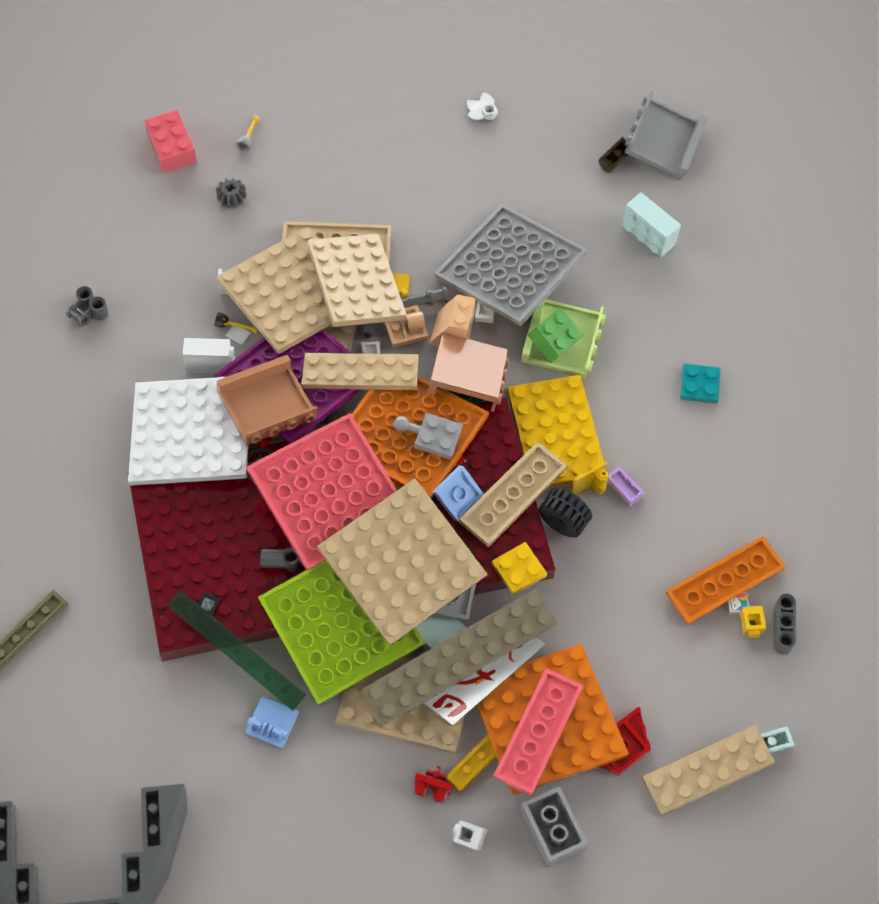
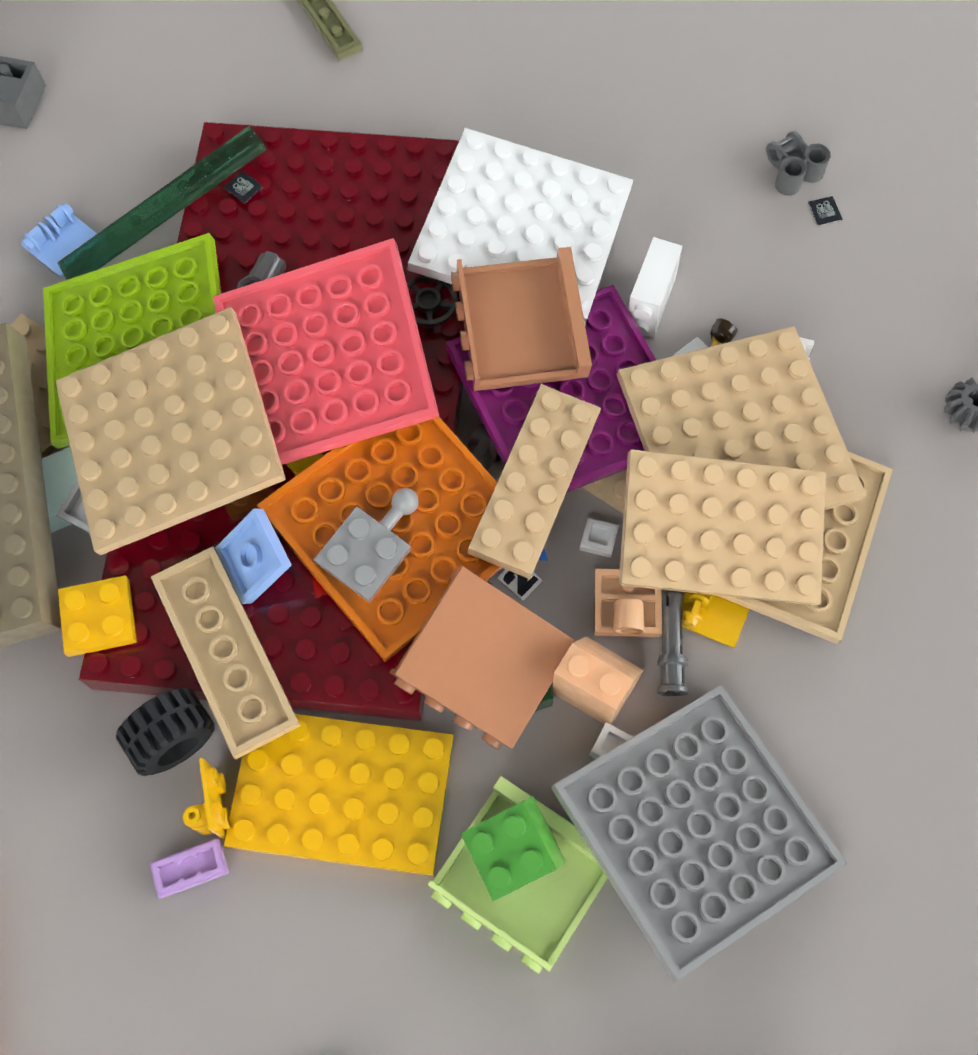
camera: 115 degrees right, 5 degrees up
(114, 289) = (825, 210): none -> black sticker

